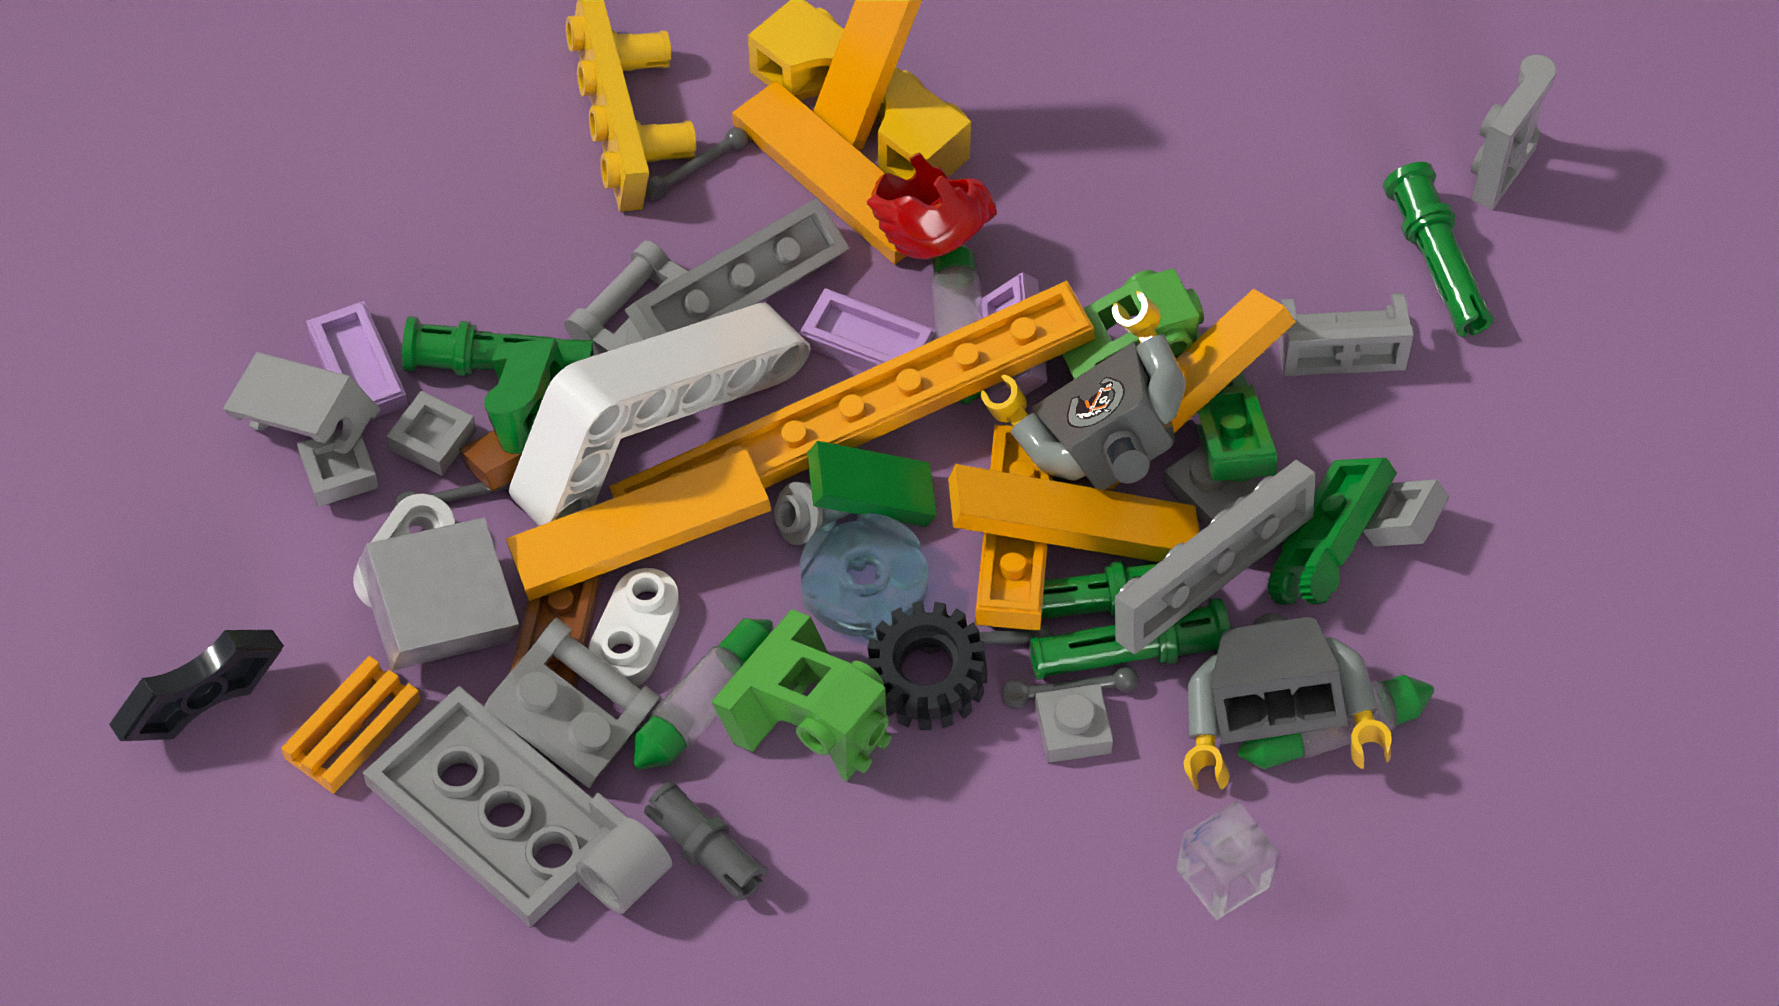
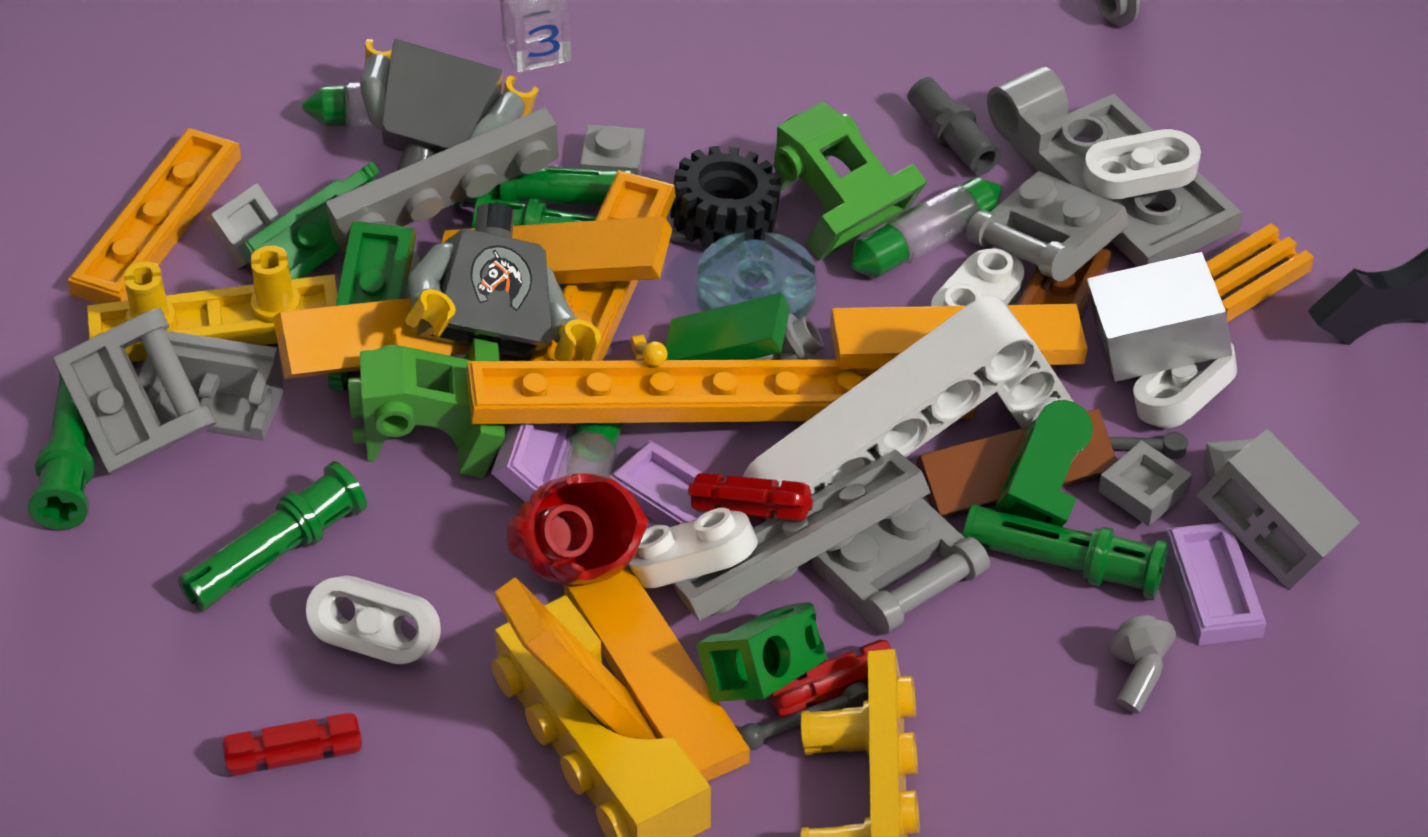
camera: 165 degrees left, 10 degrees down
(415, 263) = (1141, 643): none -> light grey plate
(476, 772) = (1141, 164): none -> white plate
(679, 194) = (825, 680): none -> red axle
(733, 165) = (762, 654): none -> green leg
(791, 291) = (751, 496): none -> red axle
(838, 255) = (693, 548): none -> white plate
(923, 391) = (652, 353): none -> yellow hinge
(1106, 43) = (292, 744): none -> red axle
(1110, 148) = (376, 620): none -> white plate
(1195, 220) = (296, 521): none -> green pin
(1385, 402) = (223, 313): none -> yellow plate
(1398, 273) = (115, 400): none -> light grey plate
(1511, 530) = (156, 215): none -> light orange tile

